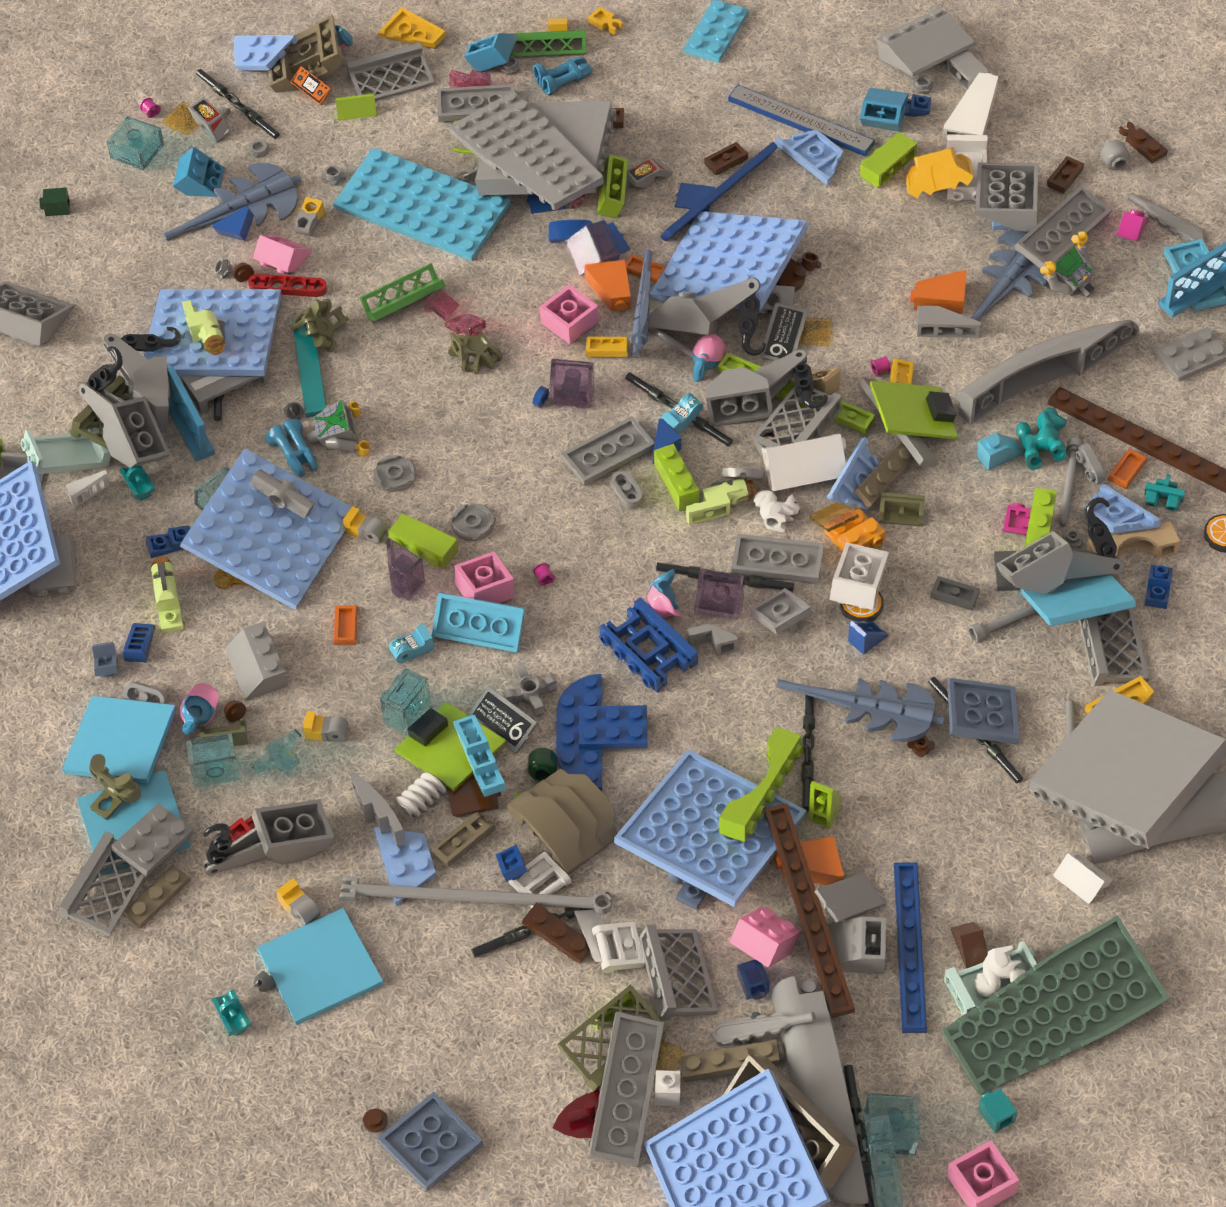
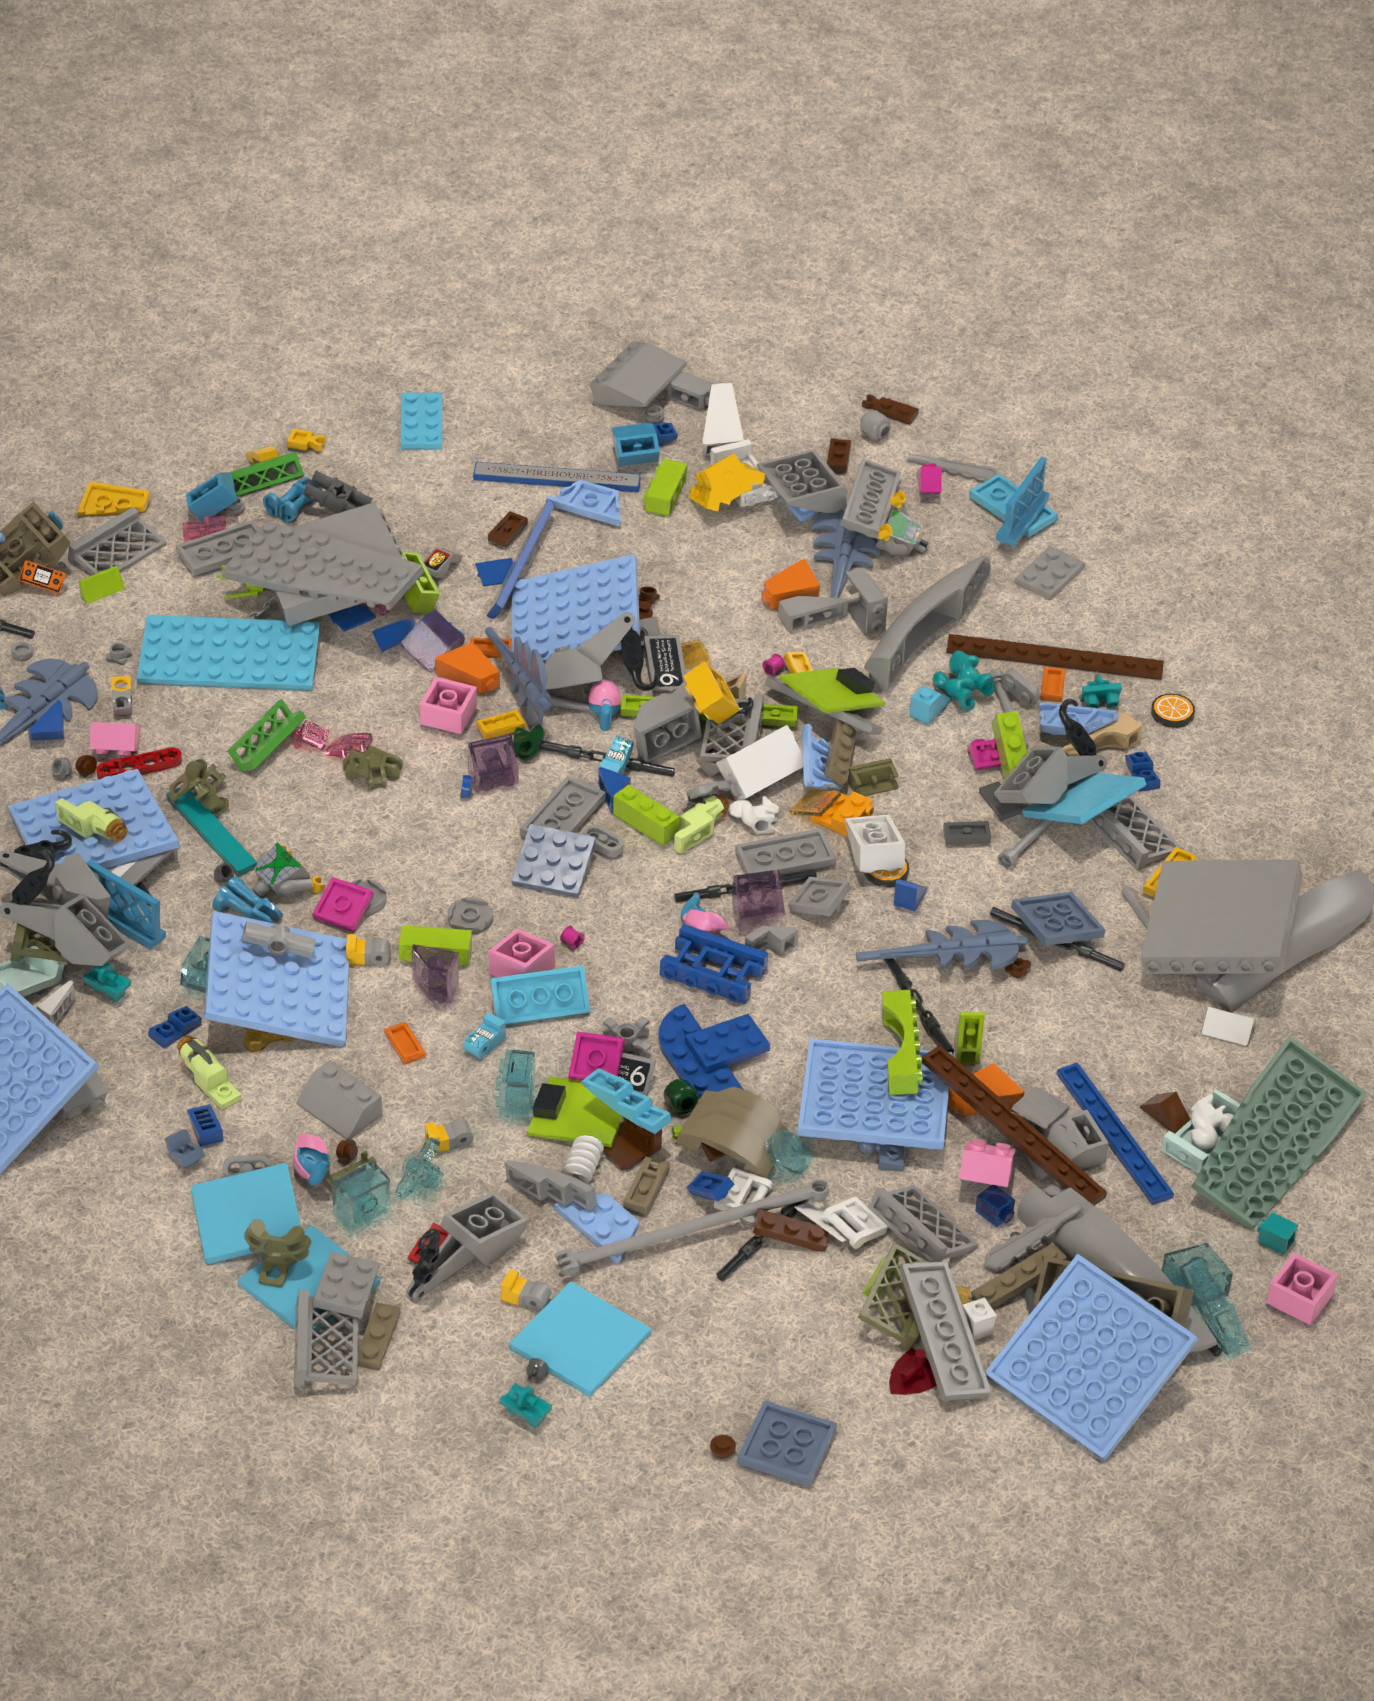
camera: 30 degrees left, 10 degrees down
(370, 475) = (343, 904): none -> dark pink tile
(488, 701) = (595, 1052): none -> dark pink tile
(571, 494) = (553, 860): none -> plate
(593, 863) = (788, 1152): none -> clear light blue plate
(597, 81) = (337, 493): none -> dark grey pin
(617, 372) = (527, 743): none -> dark green plate
(786, 381) = (710, 693): none -> yellow brick
(996, 330) = (871, 605): none -> light grey window

